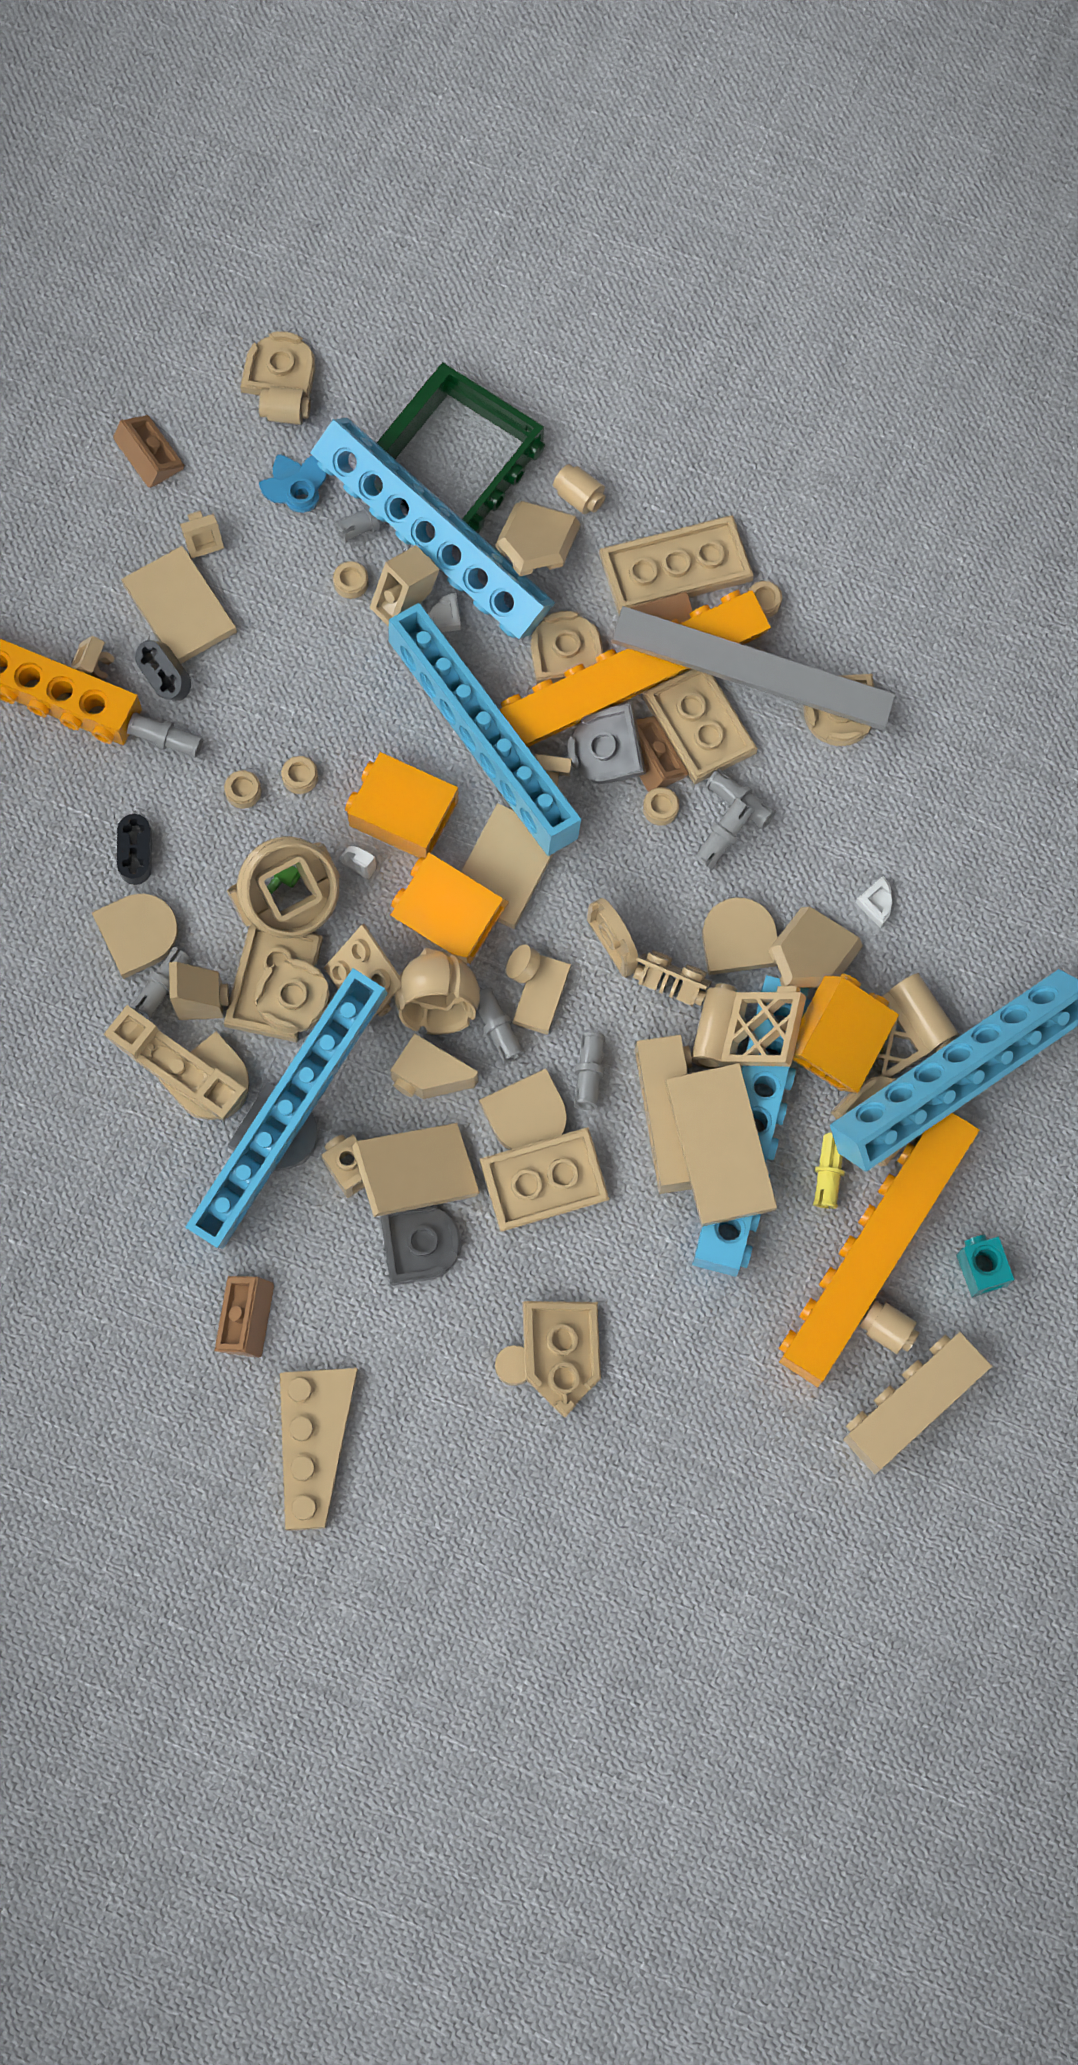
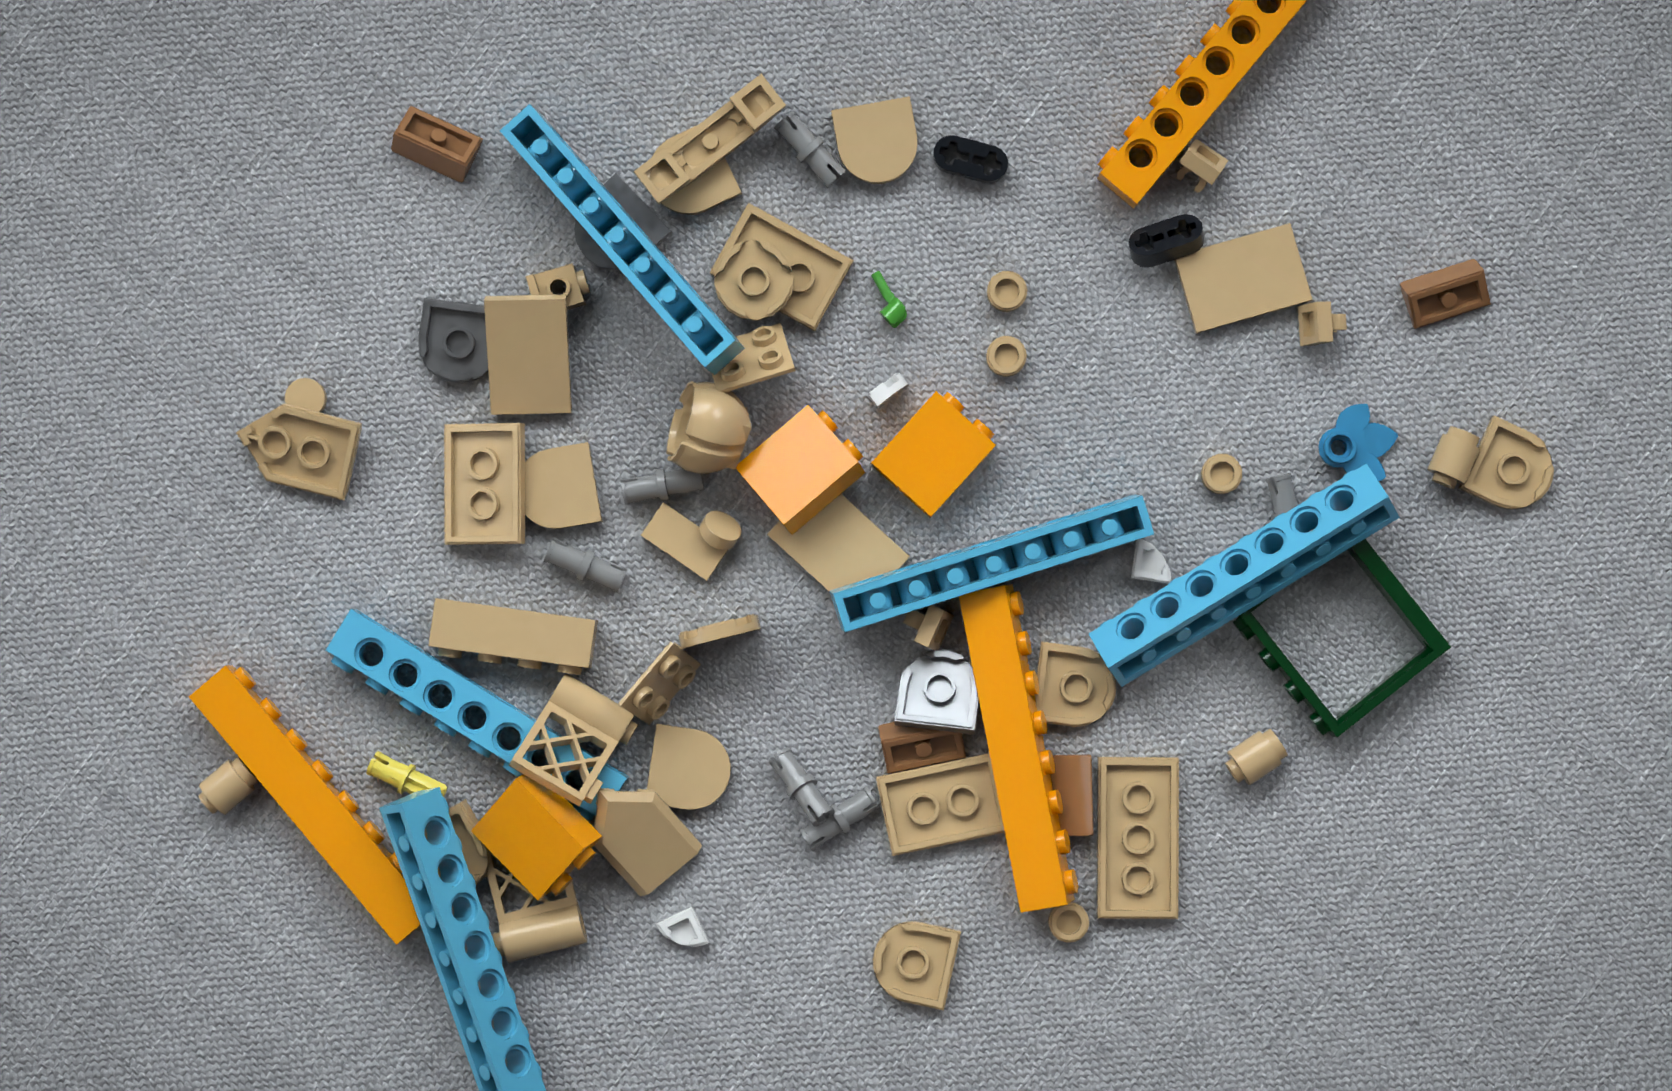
camera: 115 degrees right, 15 degrees up
(165, 735) = (1090, 224): light grey pin -> none
(196, 992) = (782, 182): tan slope -> none
(255, 902) = (895, 298): tan piece -> none
(313, 1431) = (302, 181): tan wing -> none
(403, 583) = (1186, 527): tan slope -> none
(430, 1071) = (631, 399): tan slope -> none
(537, 537) = (1206, 689): tan tile -> none
(661, 806) = (858, 732): tan tile -> none
(720, 1145) = (456, 670): tan tile -> none
(753, 668) = (975, 875): light grey tile -> none
(917, 1402) = (145, 786): tan brick -> none
(978, 1280) = (243, 903): teal brick -> none

